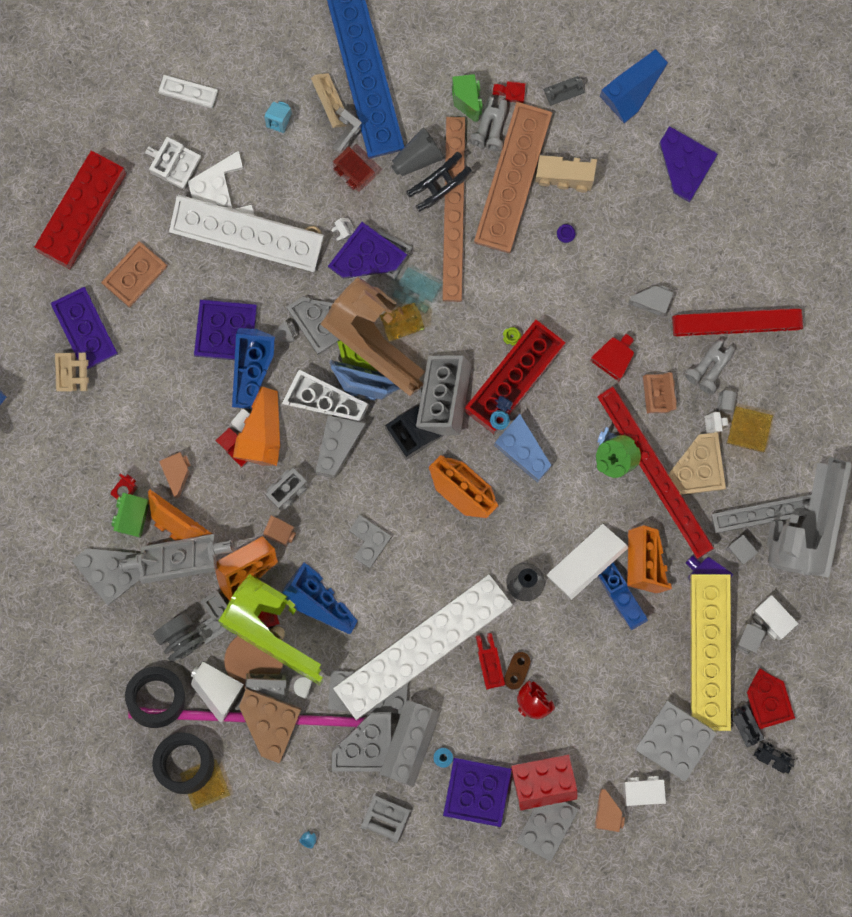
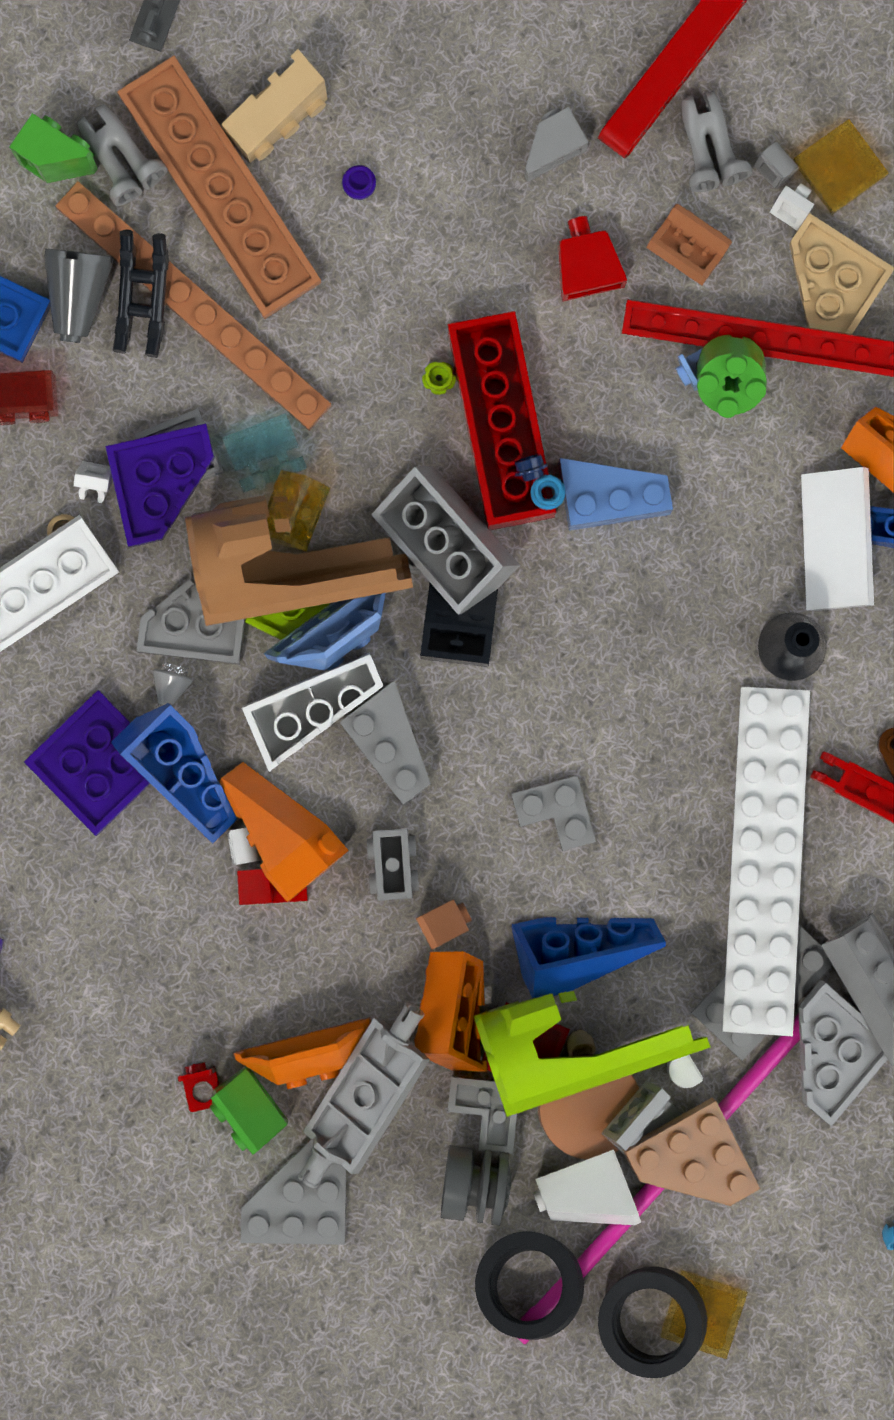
camera: 45 degrees left, 5 degrees up
(176, 472) = (239, 996): nougat slope -> none
(462, 487) = (595, 621): orange wedge -> none
(512, 91) = (97, 86): red plate -> none

